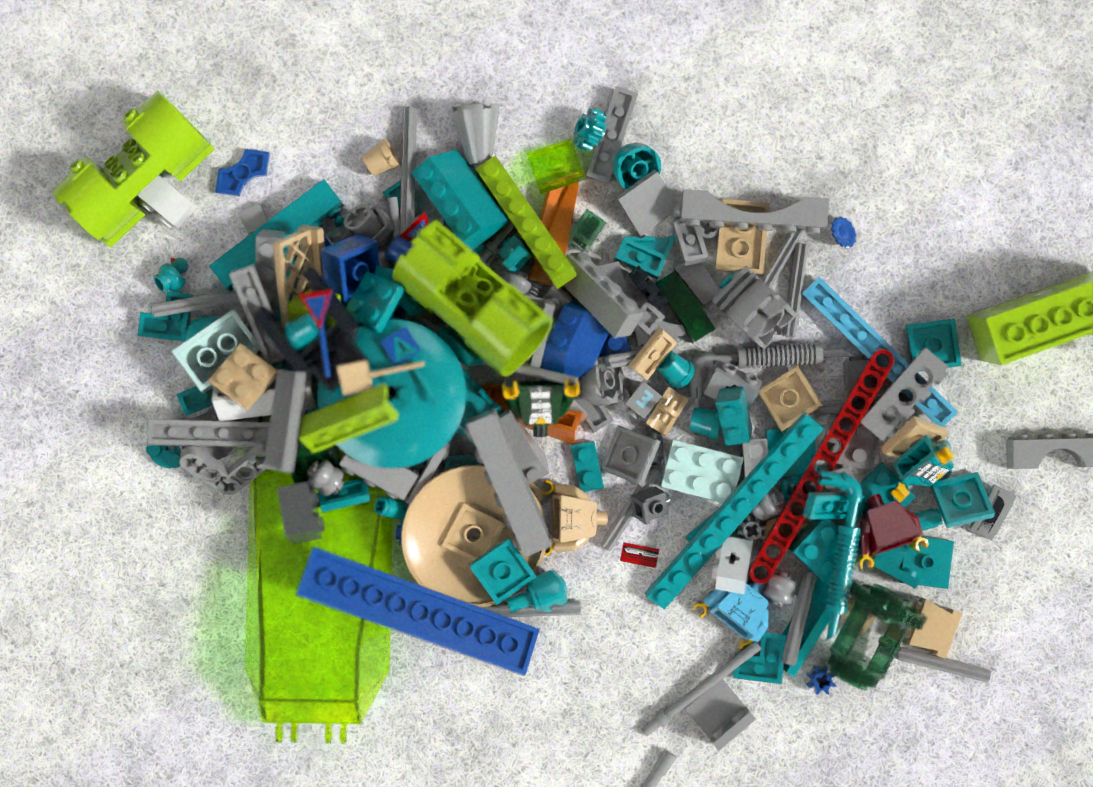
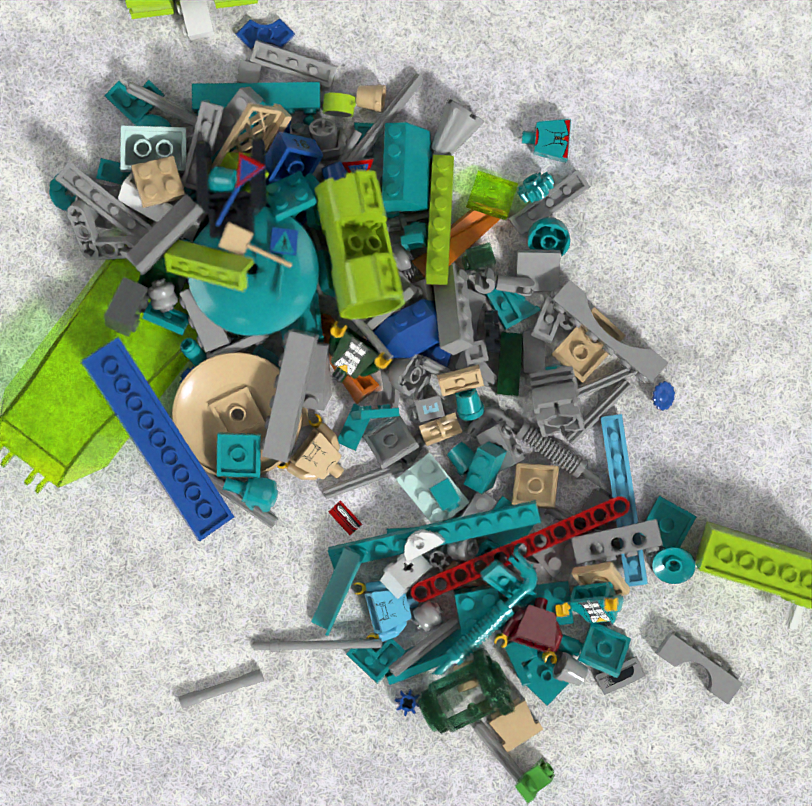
camera: 30 degrees right, 0 degrees up
(169, 275) = (158, 70): teal animal -> none
(287, 179) = (293, 63): none -> light grey plate
(356, 186) = (339, 104): none -> lime piece
(570, 77) = (550, 139): none -> teal torso
(590, 445) = (383, 411): none -> teal plate
(640, 229) = (503, 283): none -> light grey piece
(650, 504) = (379, 486): dark grey brick -> none
(682, 624) = (337, 588): none -> teal panel
(718, 467) = (445, 495): none -> teal brick
(720, 714) = (317, 672): light grey bracket -> none
(728, 527) = (421, 542): none -> white plate
(946, 542) = (569, 670): none -> light grey piece
(970, 384) = (673, 572): none -> teal dish
(987, 665) = (534, 780): none -> bright green slope

